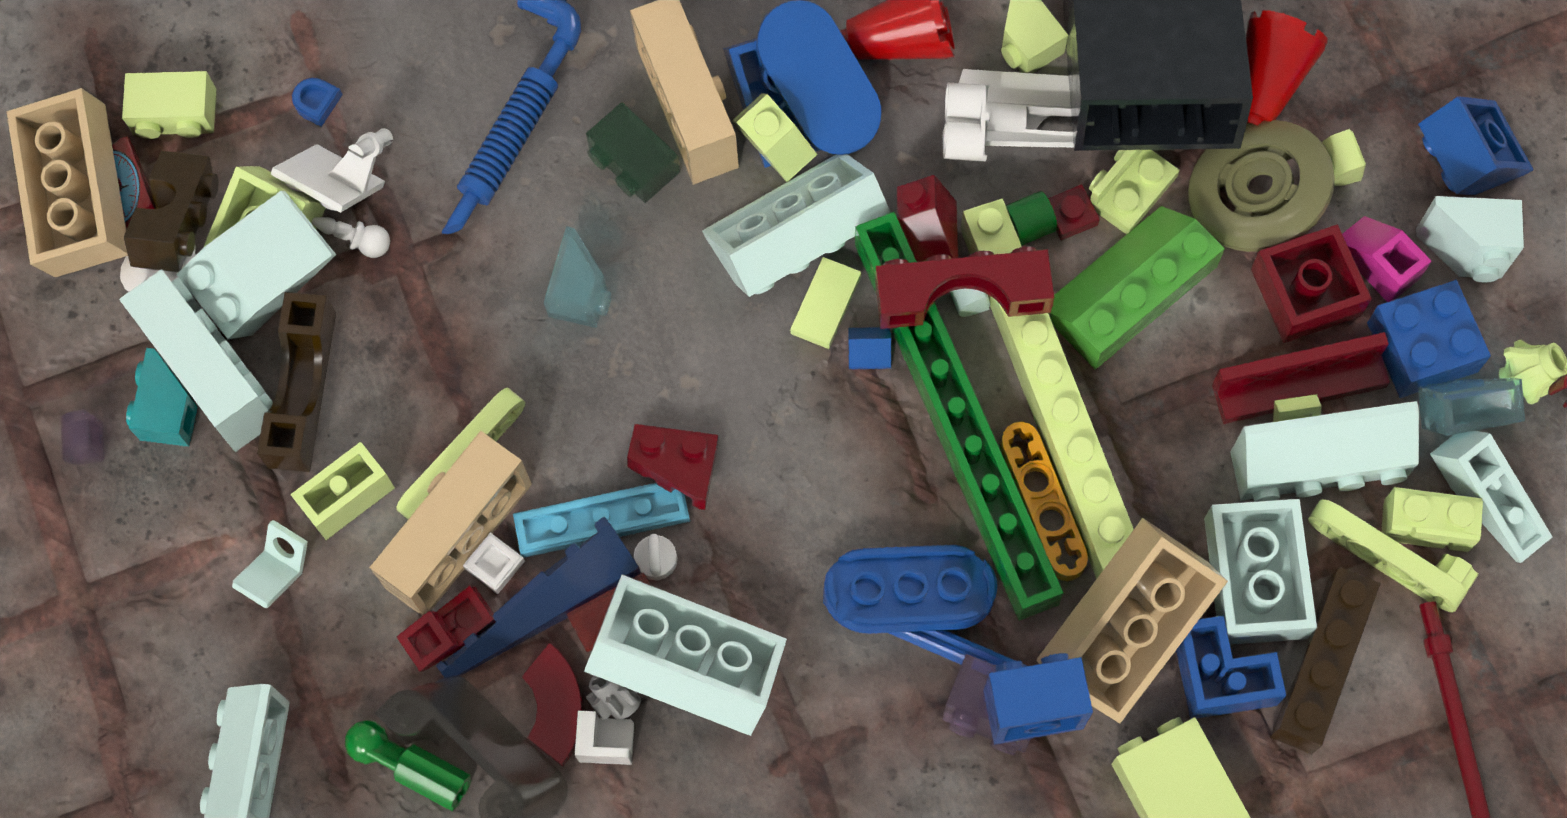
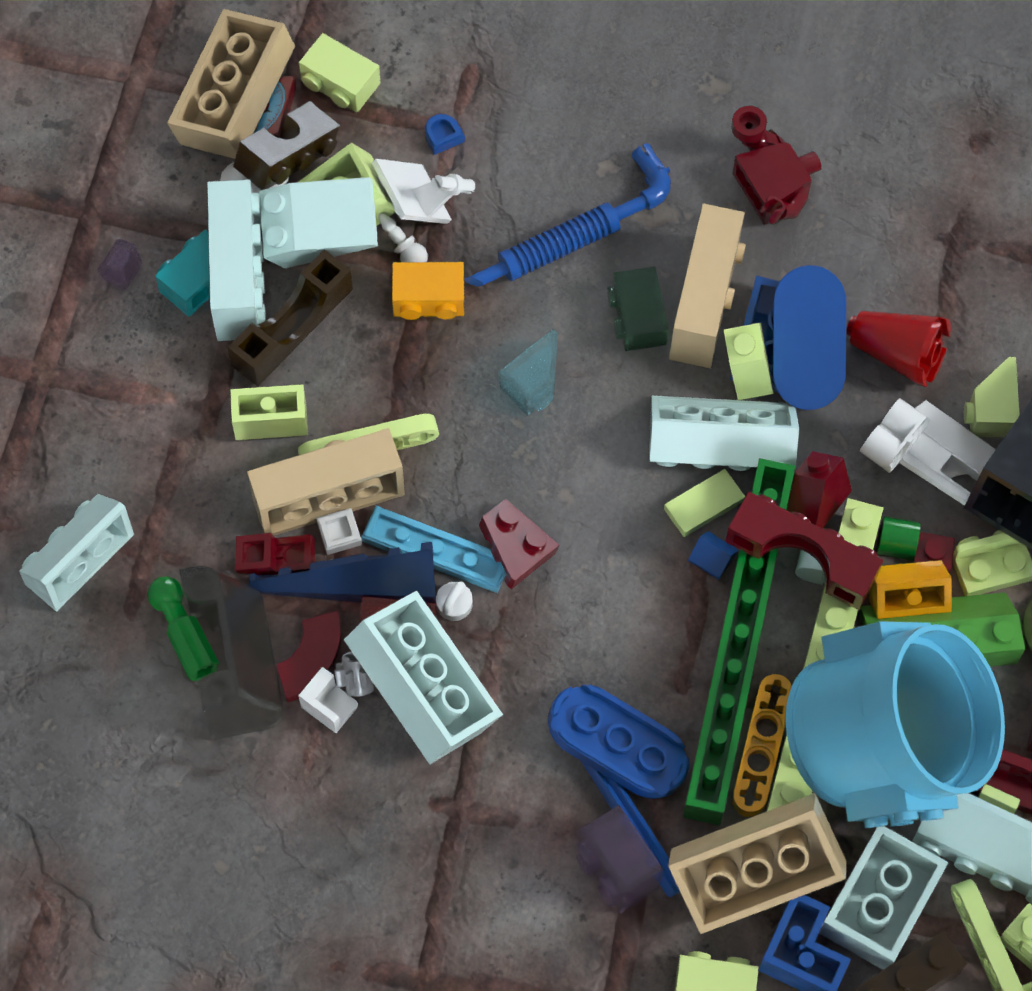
camera: 30 degrees right, 5 degrees down
(274, 568) = (185, 436): light aqua bracket -> none
(413, 265) = (428, 289): none -> light orange brick
(1037, 698) = (641, 863): blue brick -> none
(1084, 258) = (911, 590): none -> light orange brick
(1171, 400) = (896, 722): none -> medium azure cylinder

